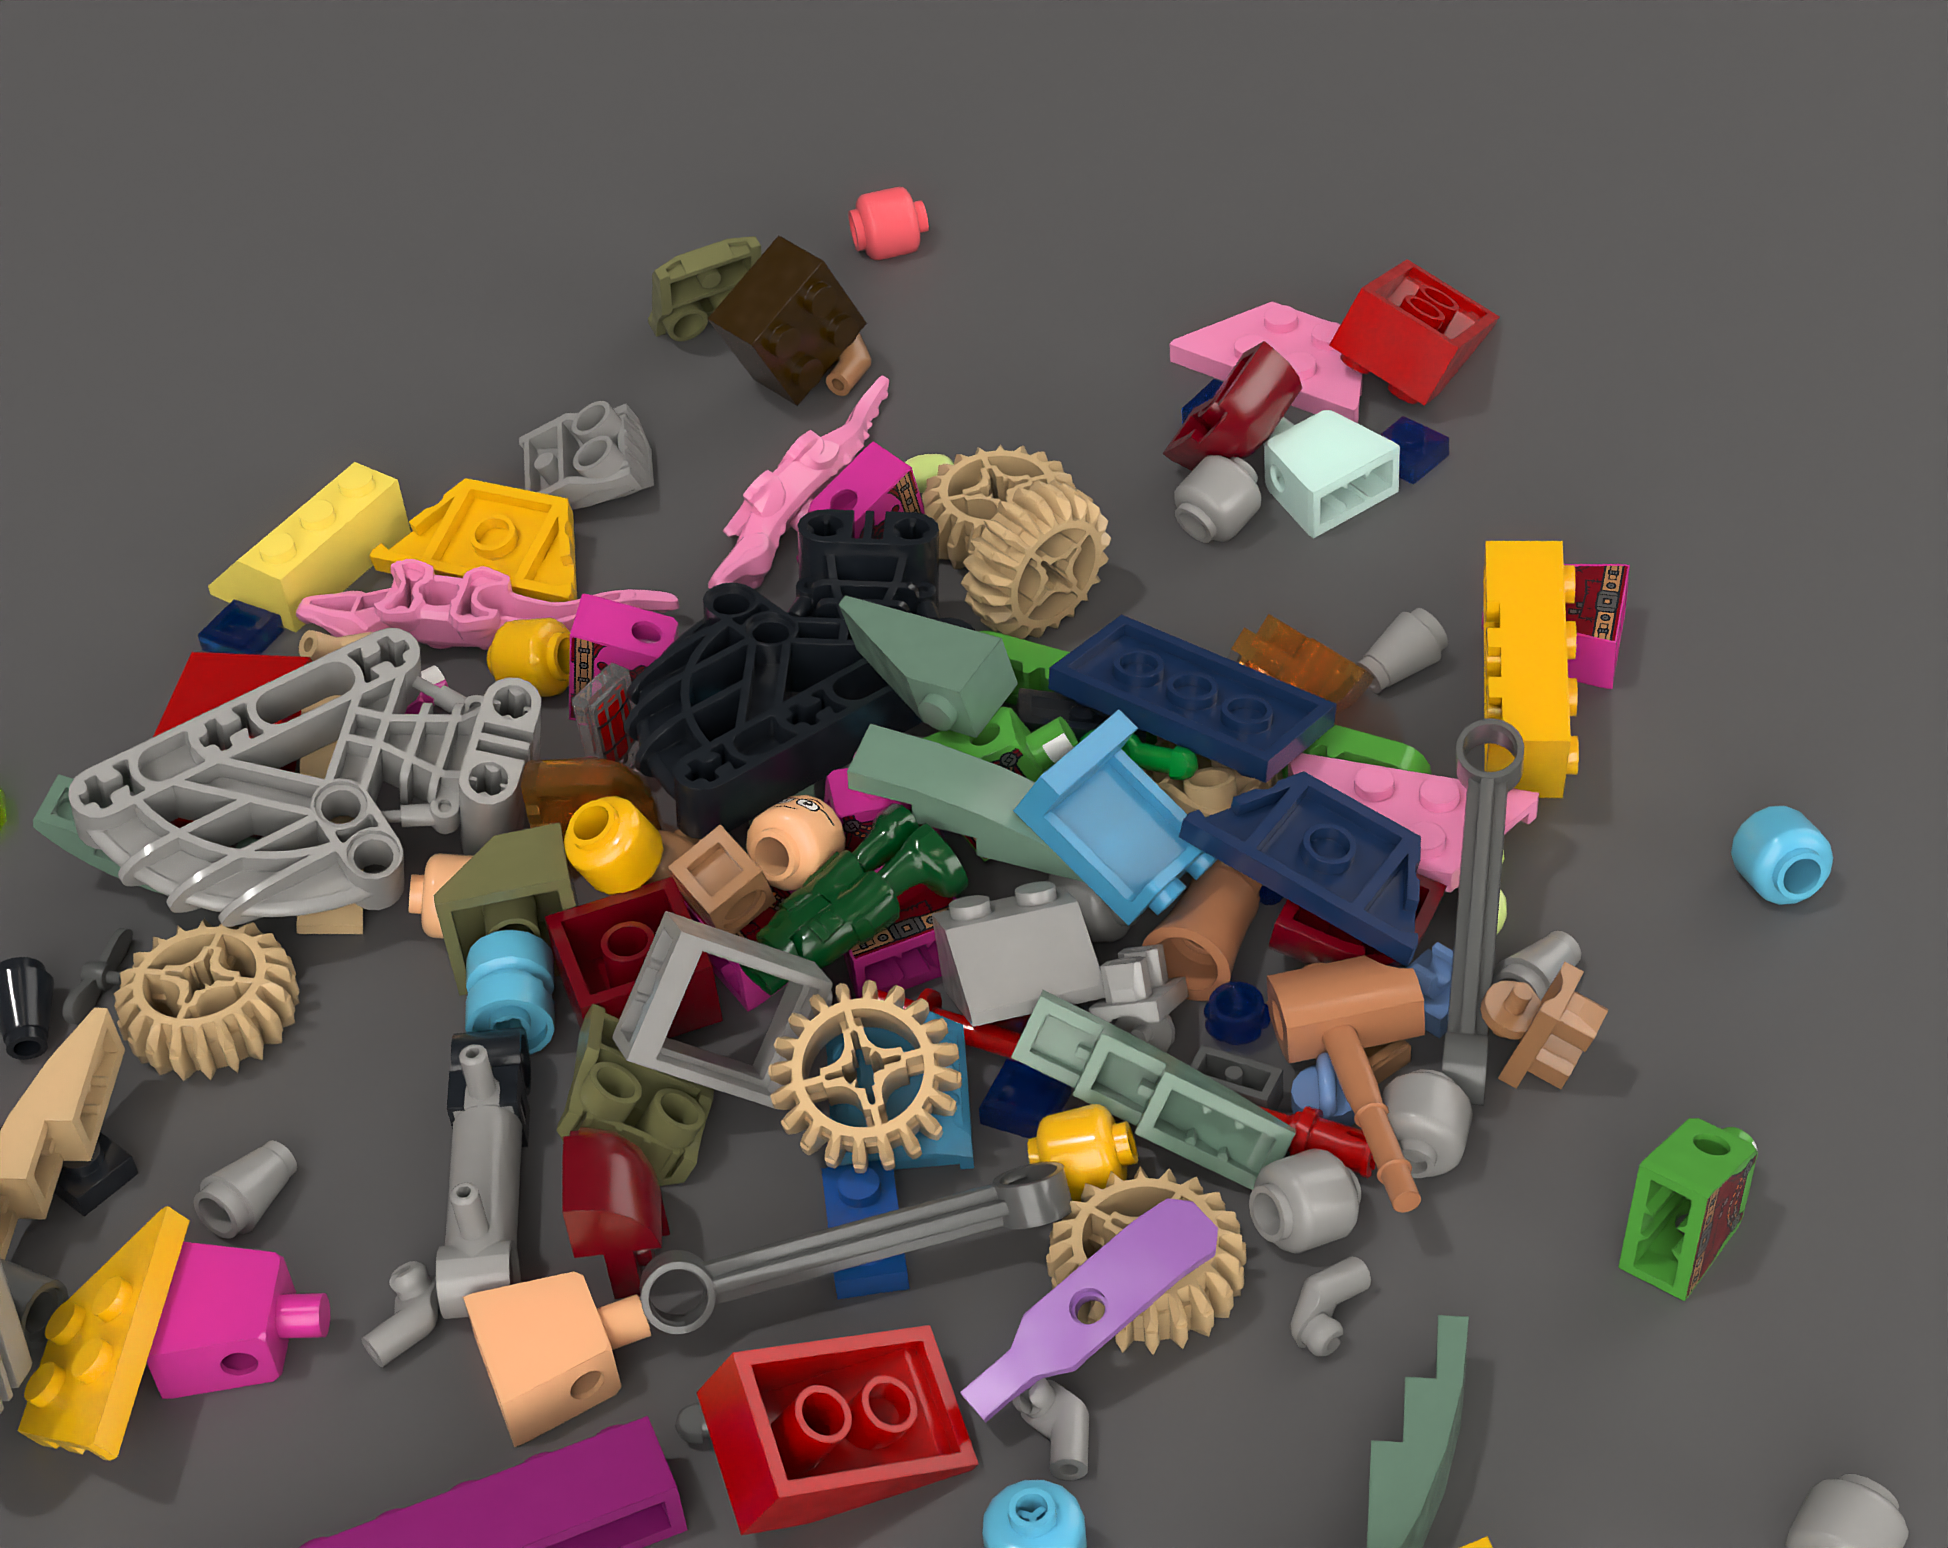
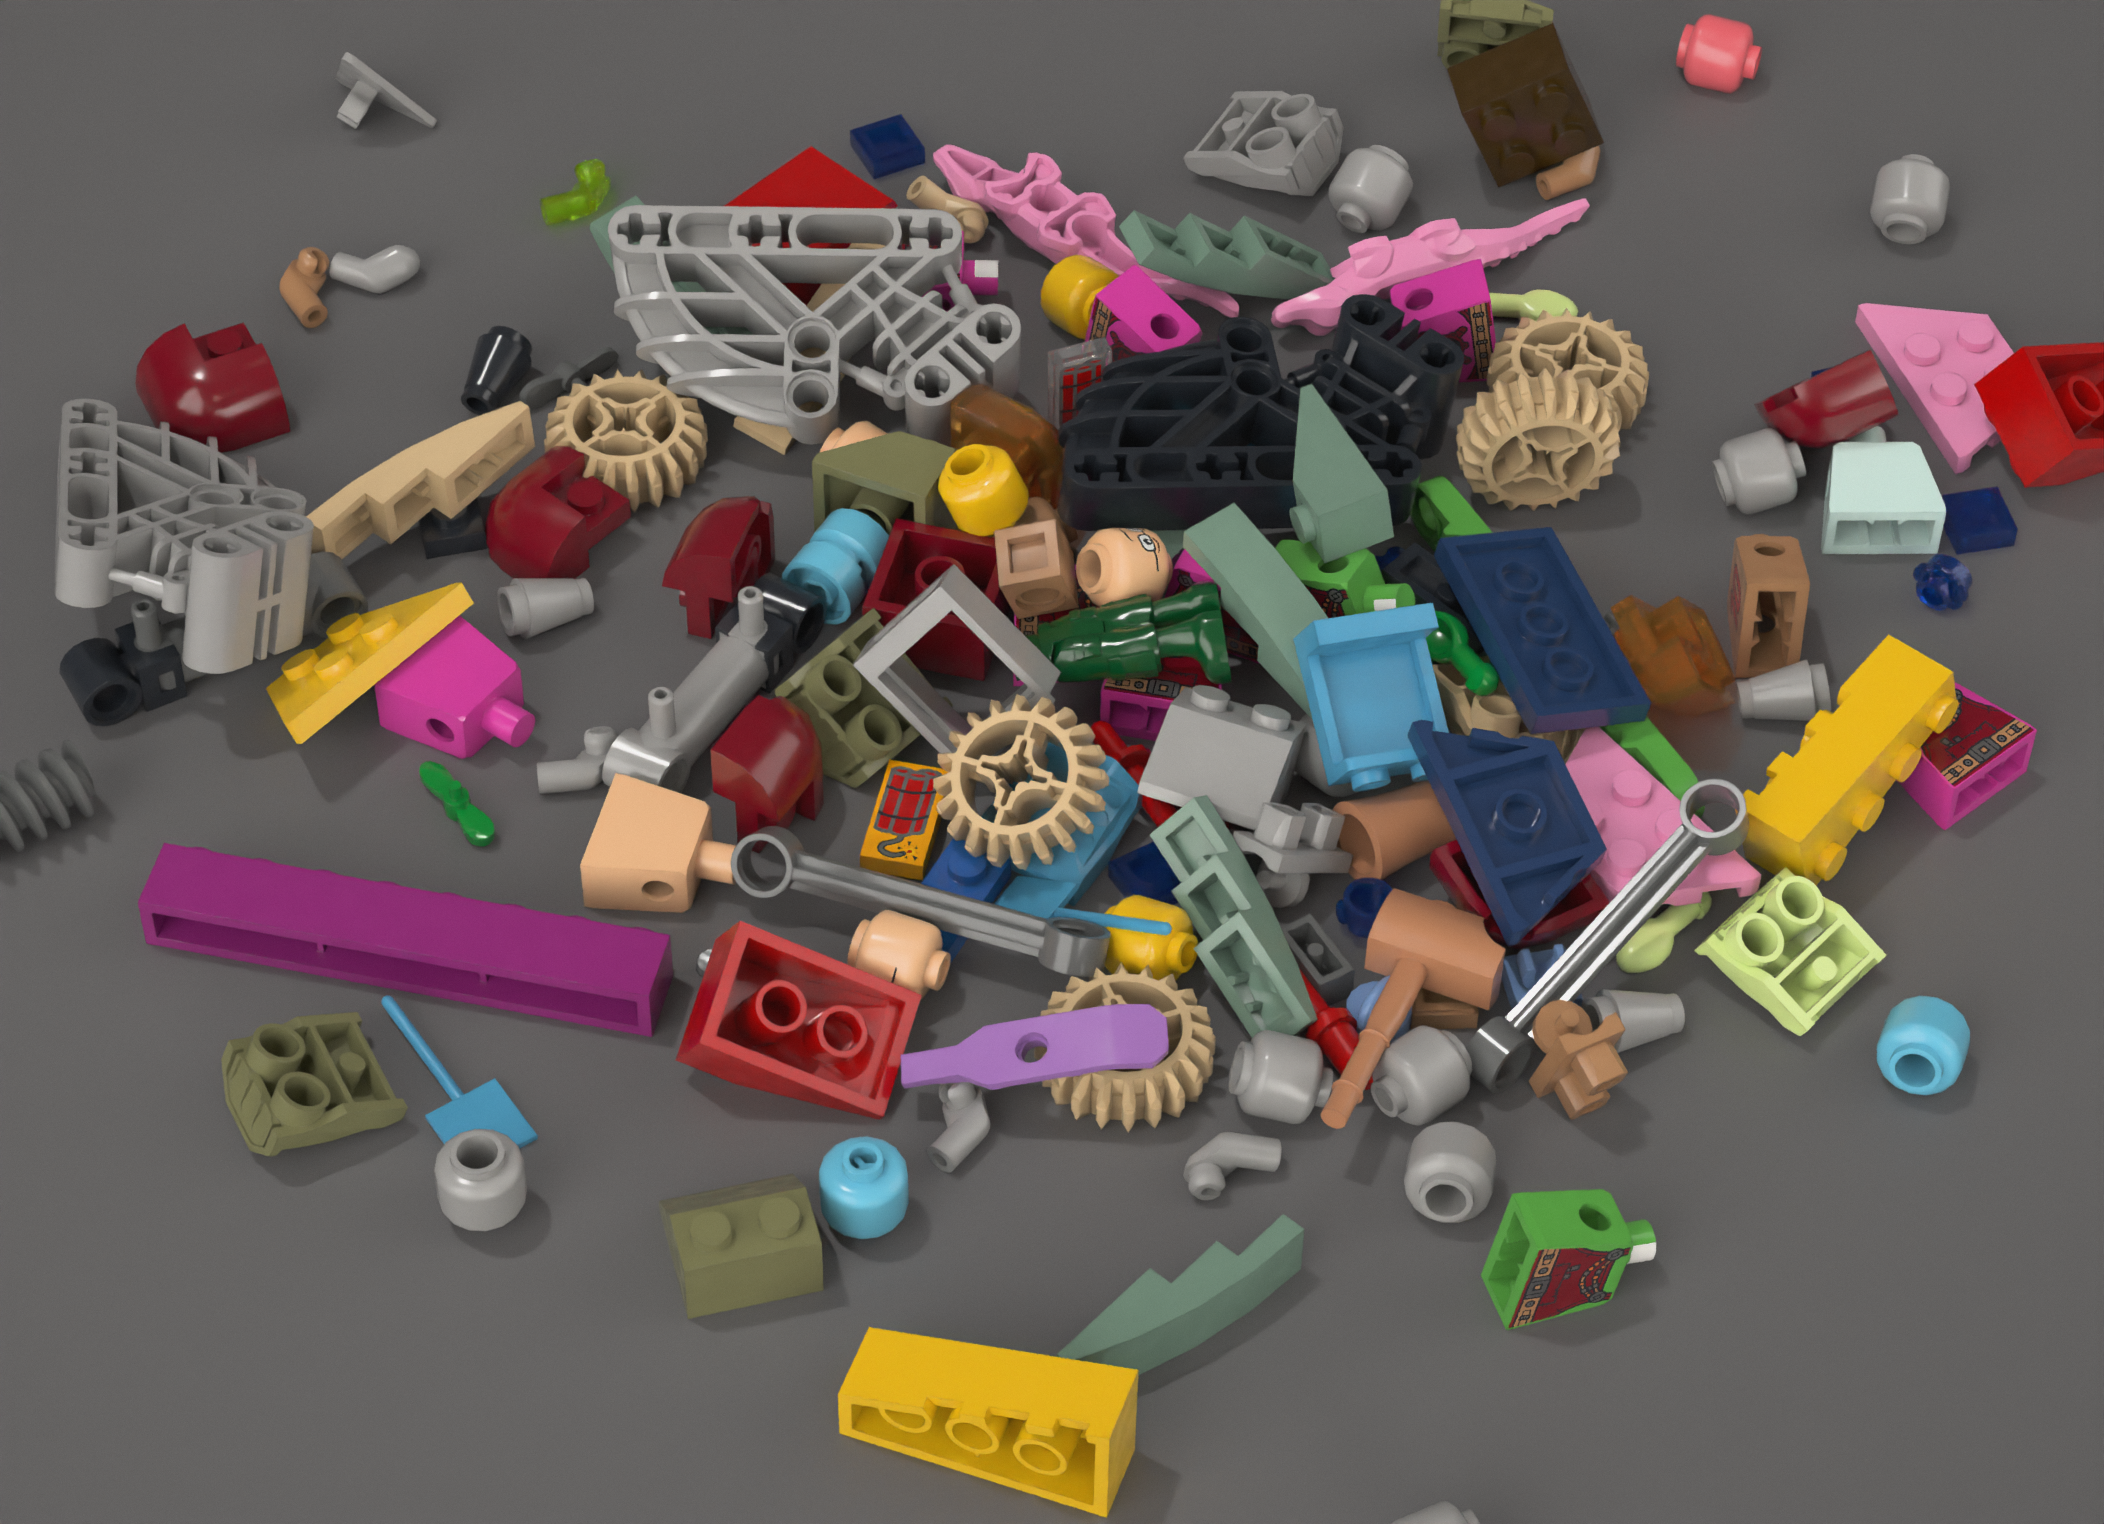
camera: 30 degrees right, 5 degrees up
(189, 1106) = (552, 517): none -> dark red brick
(308, 1426) = (457, 803): none -> green piece
(319, 545) = (1000, 104): light yellow slope -> none
(395, 1048) = (718, 556): none -> dark red brick
(495, 528) = (1135, 164): yellow wing -> none
(649, 557) = (1237, 261): none -> sand green slope
(704, 450) = (1370, 189): none -> light grey head
(760, 1181) = (903, 821): none -> tile
(872, 1297) = (901, 951): none -> light nougat head
(961, 1171) = (1049, 897): none -> dark azure piece
(1137, 249) = (1910, 199): none -> light grey head
(1328, 586) = (1769, 581): none -> medium nougat torso
(1433, 505) = (1942, 582): none -> clear blue plate
(1525, 1192) = (1450, 1172): none -> light grey head
(1604, 842) = (1792, 950): none -> yellowish green slope

